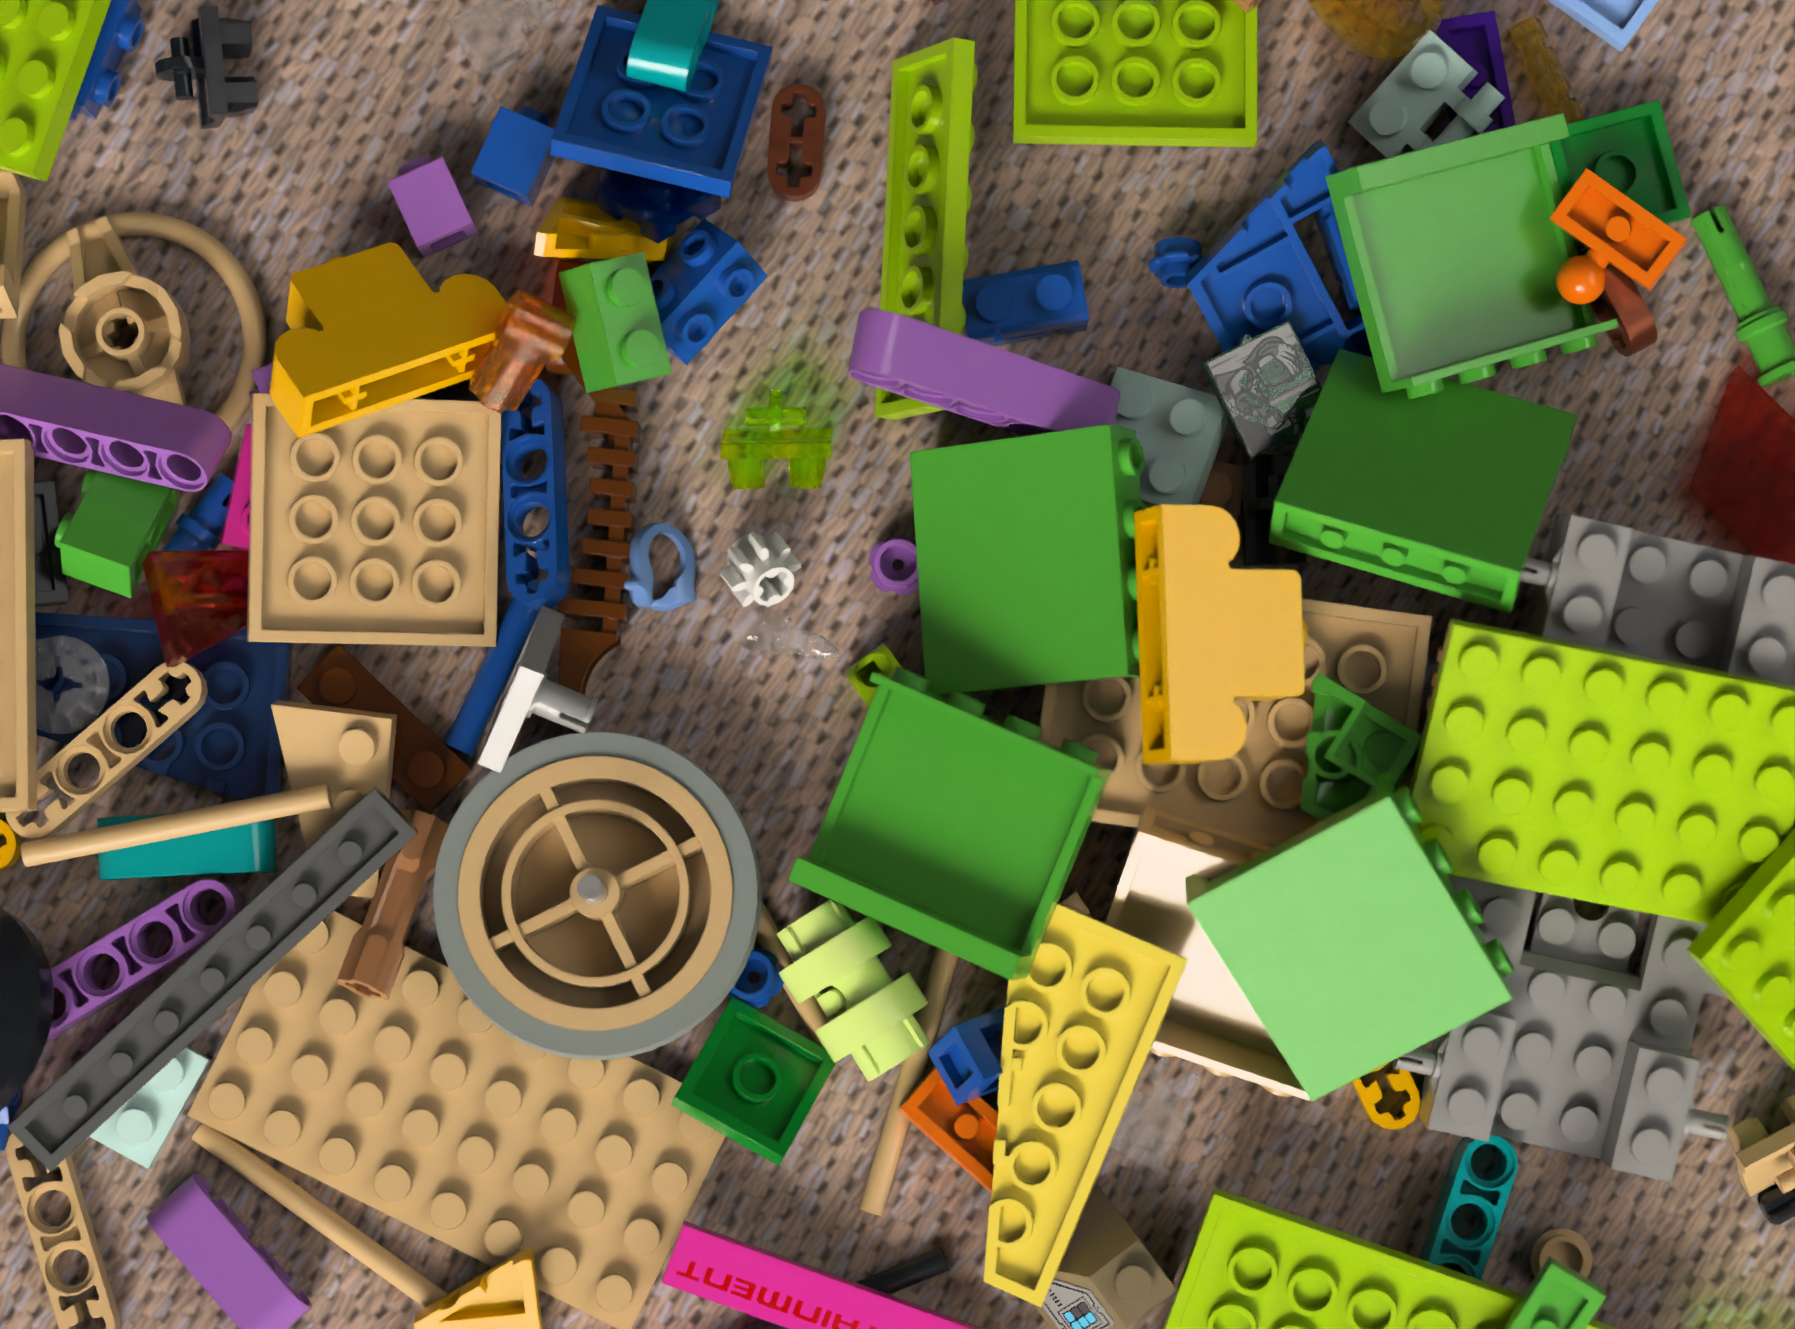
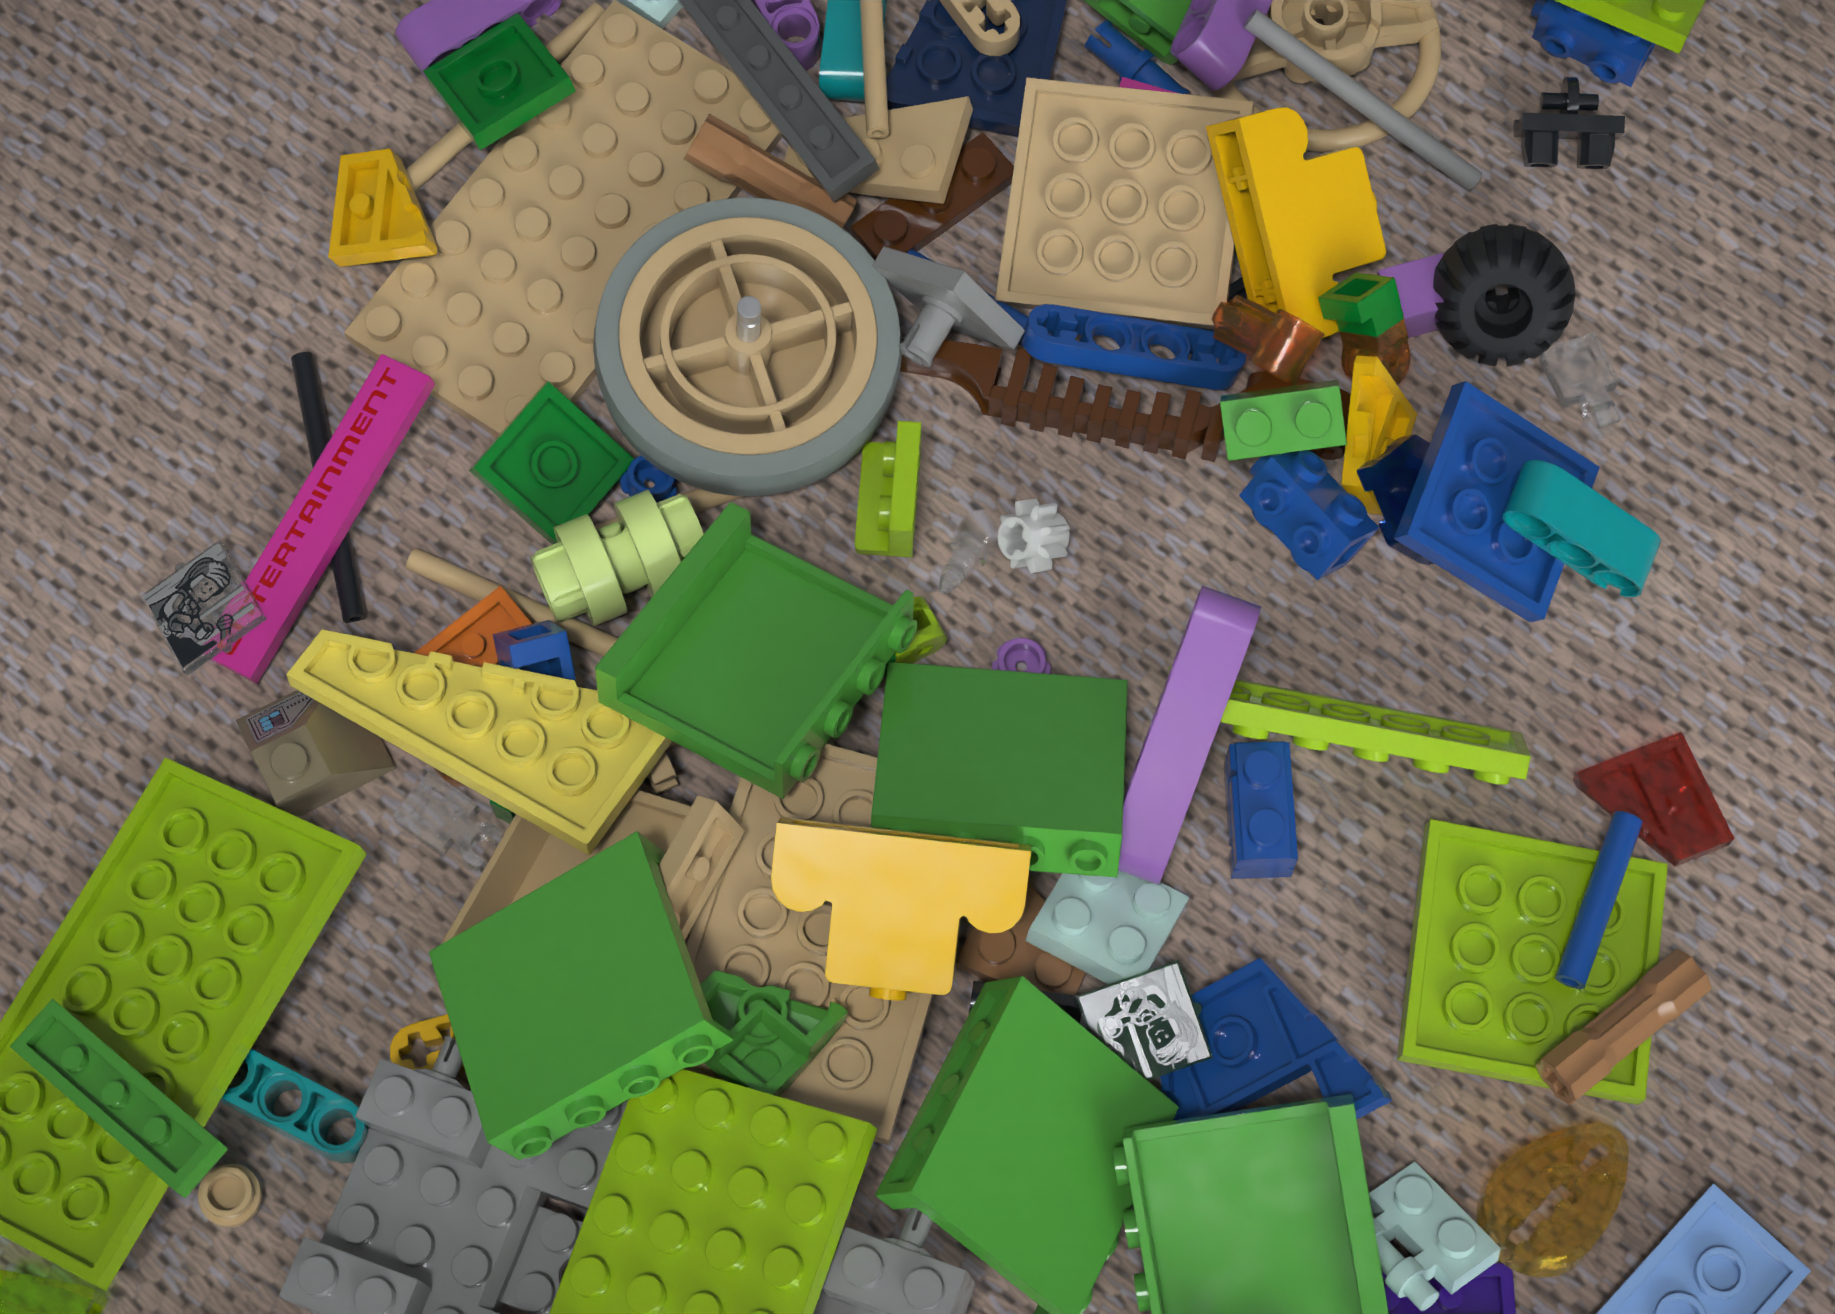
camera: 95 degrees right, 15 degrees down
(196, 598) = (1071, 42): clear red wing -> none
(217, 285) = (1362, 99): none -> light grey piece
(315, 1220) = (499, 81): none -> green plate
(422, 115) = (1511, 324): none -> black wheel
(489, 246) = (1369, 322): none -> green leg
(516, 154) = (1457, 360): blue brick -> none
(641, 579) = (1038, 425): medium blue piece -> none
(734, 724) = (889, 494): none -> lime bracket
(750, 447) = (1160, 570): clear neon green hips -> none
(782, 141) = (1450, 617): copper beam -> none
(1174, 259) = (1292, 964): blue plate -> none

